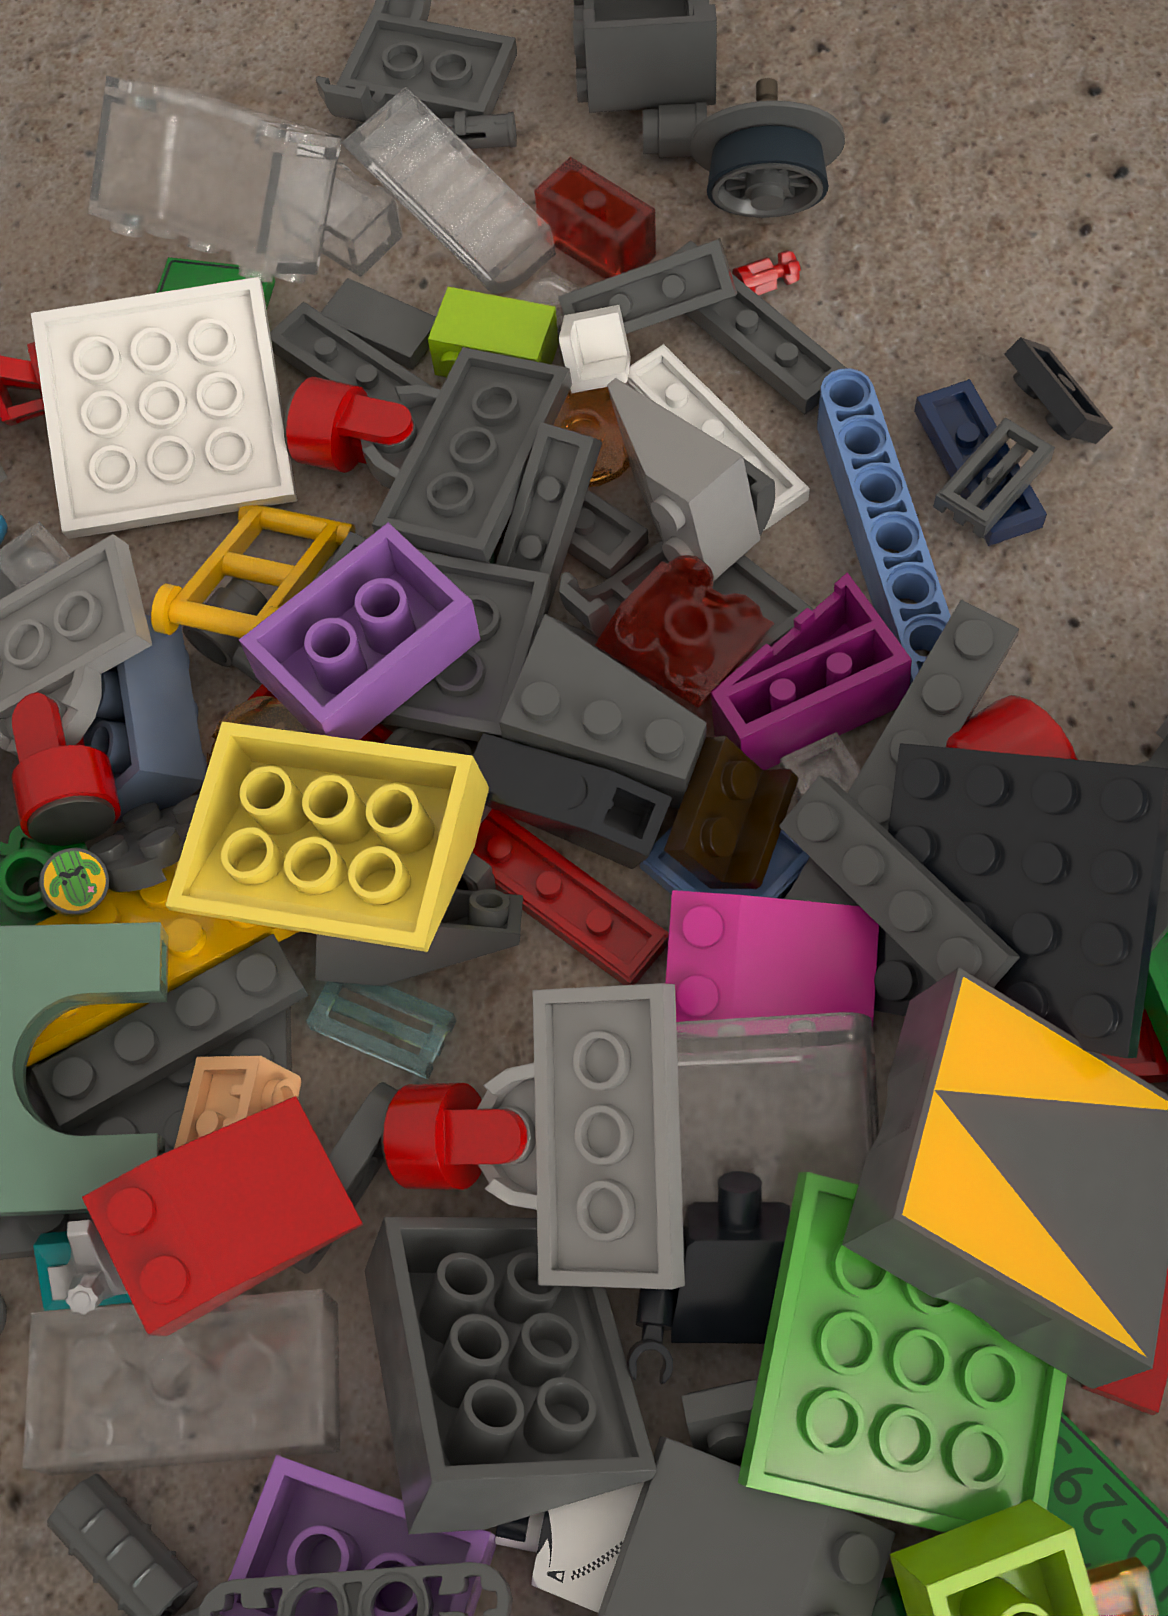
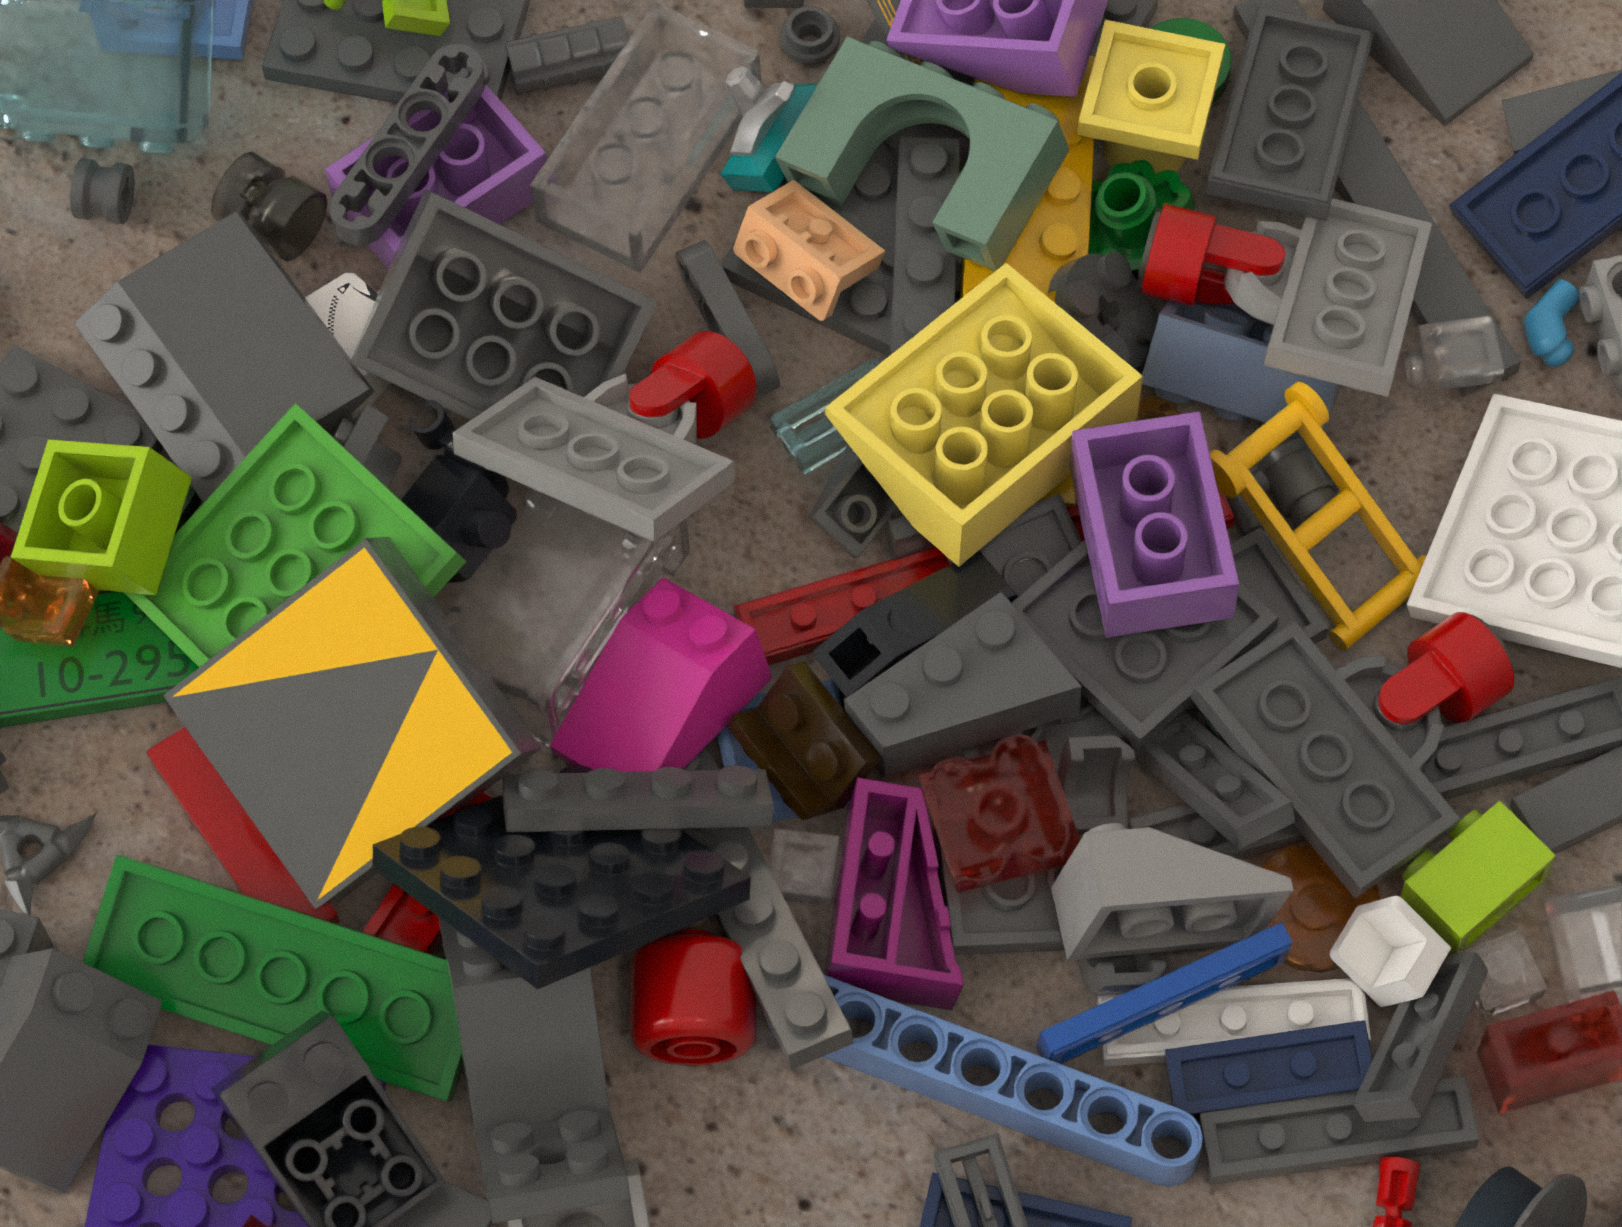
camera: 120 degrees right, 0 degrees up
(73, 882) = (1091, 224): tile -> none
(220, 1215) = (726, 182): red slope -> none
(739, 380) = (1268, 1068): none -> dark blue plate
(799, 479) = (1165, 995): none -> blue tile

